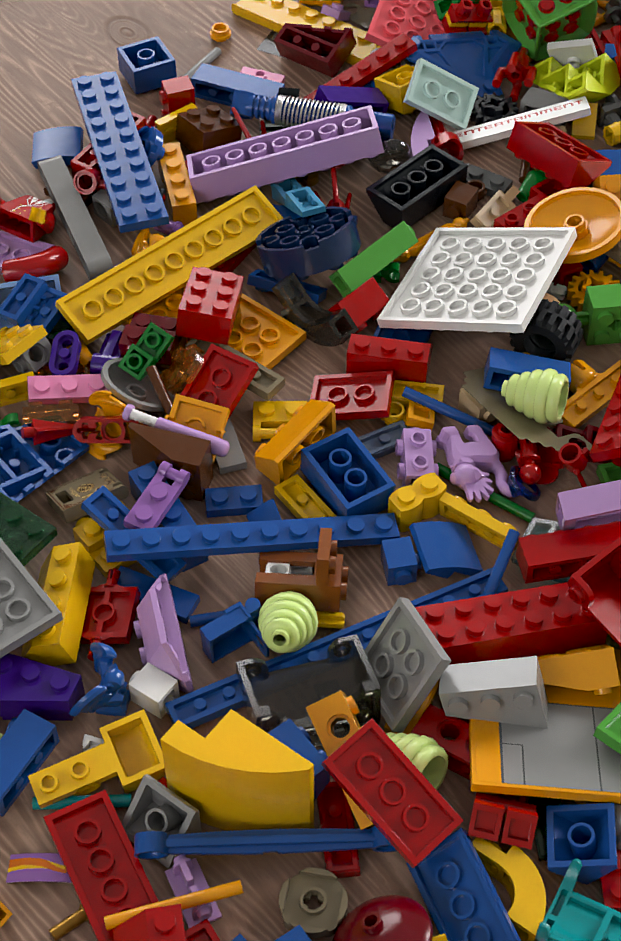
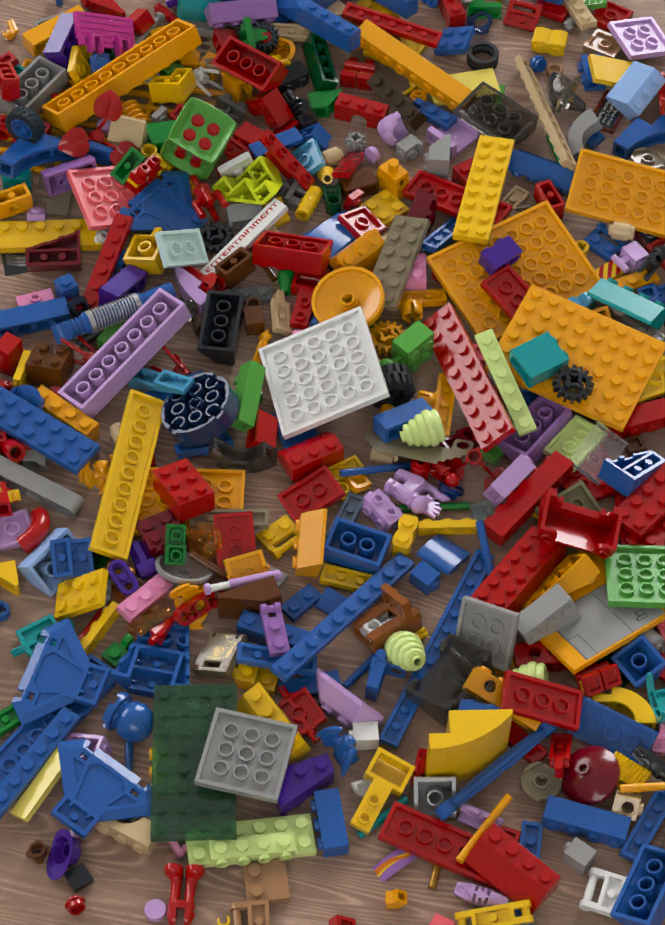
camera: 40 degrees left, 5 degrees up
(298, 77) = (66, 287): none -> blue brick
(368, 882) = (560, 752): none -> red hinge
(485, 144) = (235, 267): none -> reddish brown brick

